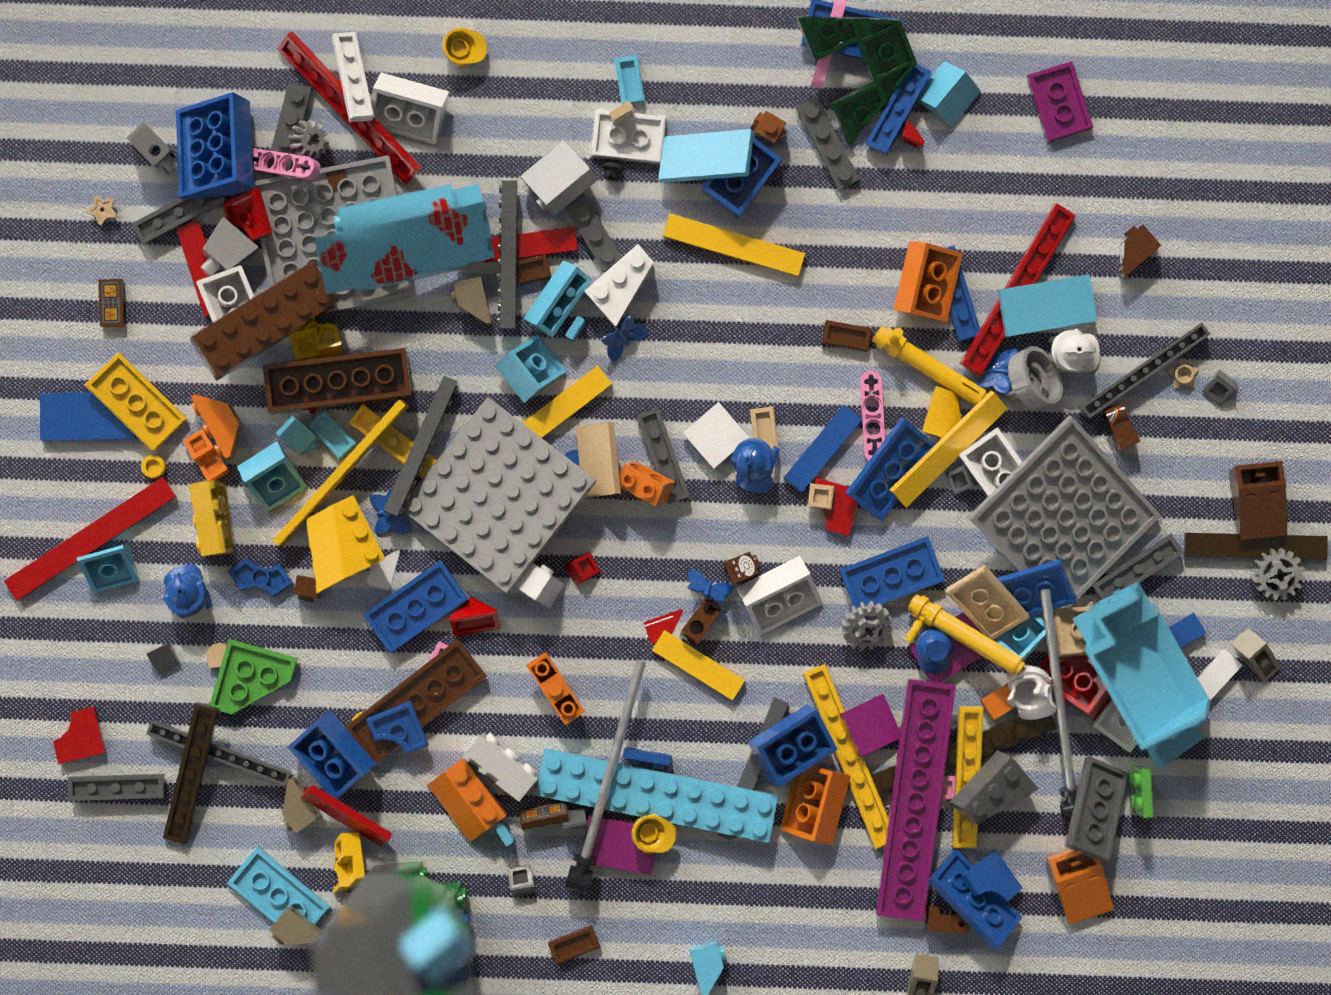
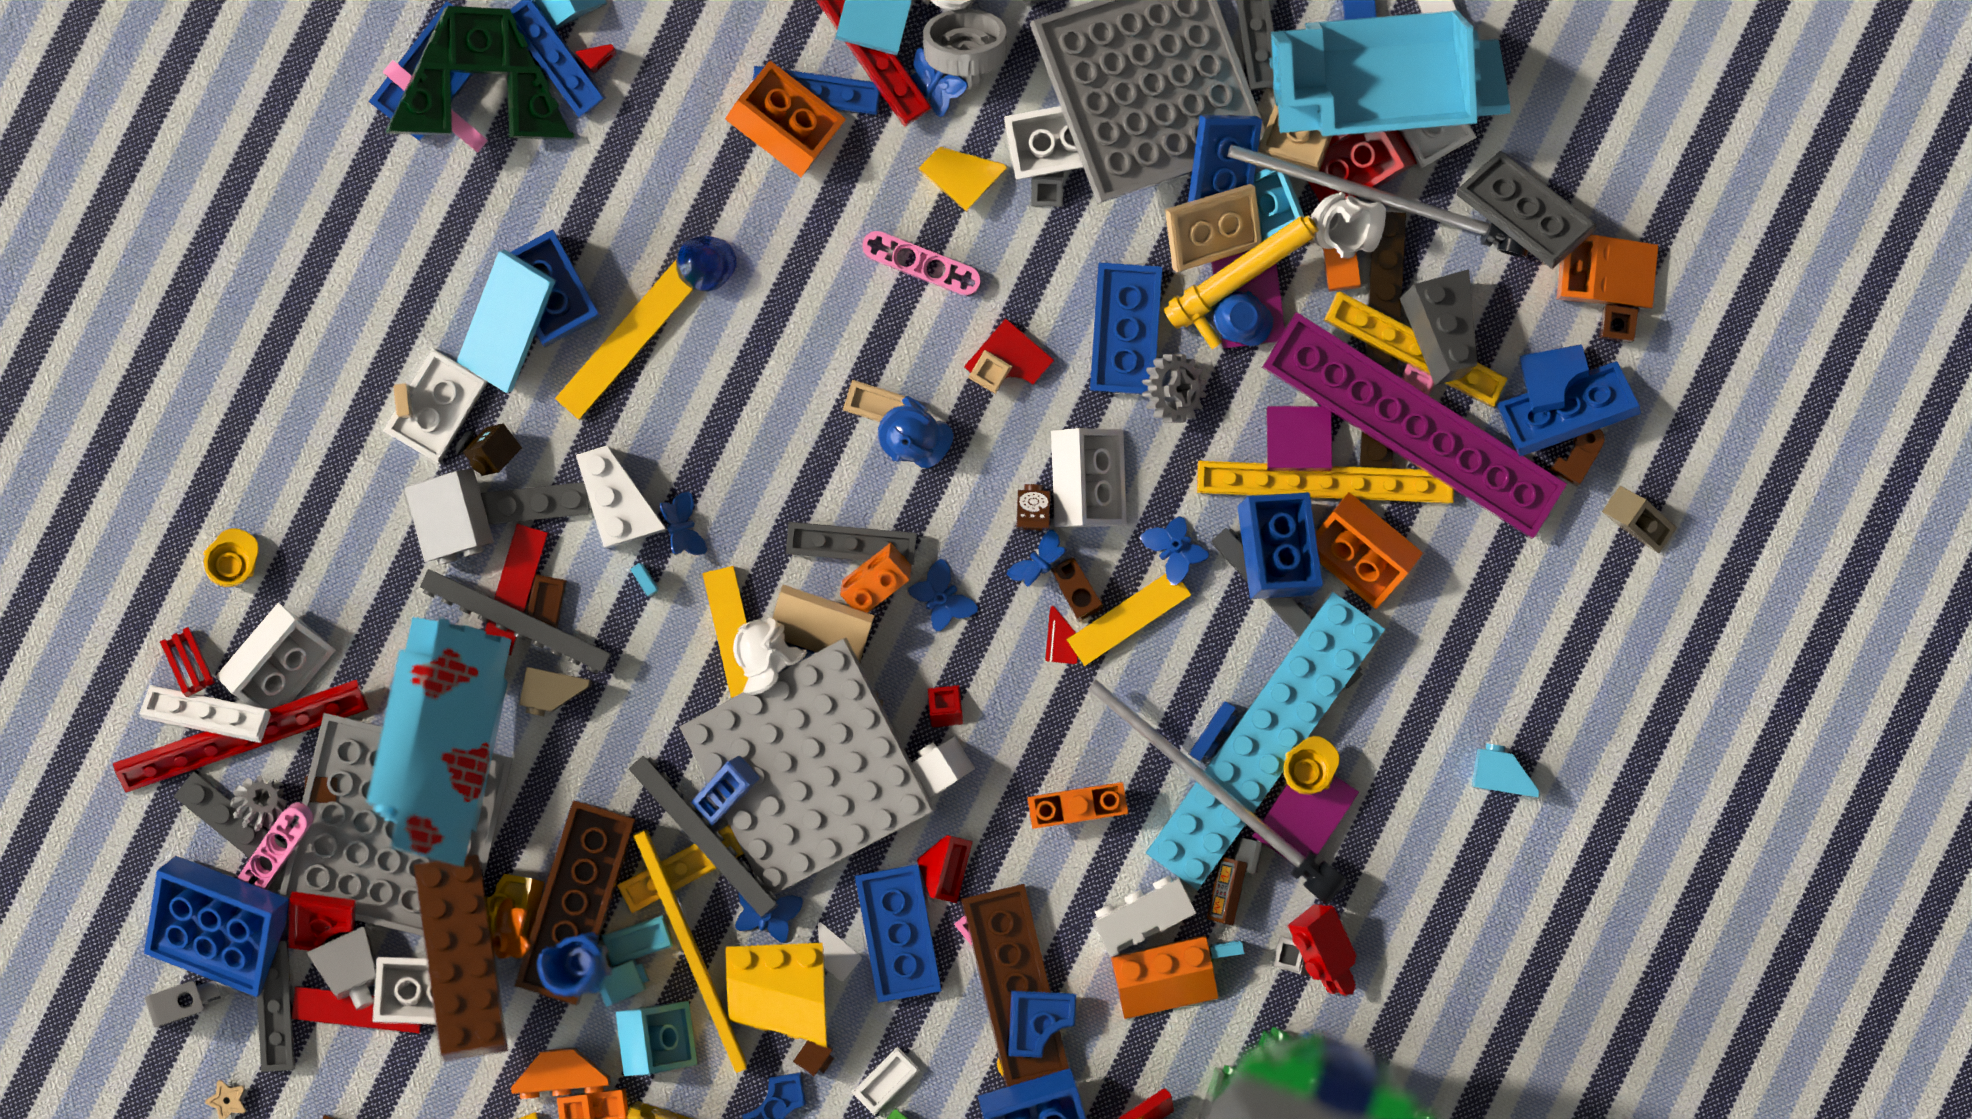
camera: 65 degrees left, 0 degrees up
(292, 399) = (574, 966): none -> blue hair
(294, 346) = (508, 937): none -> orange plate
(313, 643) = (885, 1080): none -> white tile
(392, 37) = (177, 640): none -> red tile
(437, 946) = (1320, 1070): medium azure slope -> none
(472, 452) = (739, 775): none -> blue slope
(530, 368) = (668, 657): medium azure slope -> none
(535, 899) = (1325, 948): none -> red hinge
(557, 298) = (598, 584): medium azure brick -> none
(561, 430) = (763, 653): none -> white helmet
(574, 944) = (1402, 926): reddish brown tile -> none
(615, 187) = (492, 450): none -> dark brown brick
(629, 80) = (366, 372): medium azure tile -> none
(653, 532) = (940, 599): none -> blue piece
(715, 435) = (855, 466): white tile -> none
(759, 676) = (1177, 546): none -> blue piece
(769, 128) = (506, 228): dark orange brick -> none
(806, 272) = (705, 263): none -> clear blue hat
(822, 448) = (931, 342): blue tile -> none
(827, 143) = (557, 164): dark grey plate -> none
(846, 336) = (806, 249): reddish brown tile -> none
(887, 466) = (996, 269): blue plate -> none
(897, 346) = (849, 192): yellow cylinder -> none
(948, 449) = (1003, 188): yellow tile -> none
(1055, 910) = (1627, 316): none -> reddish brown plate
(1142, 799) = (1541, 150): bright green plate -> none

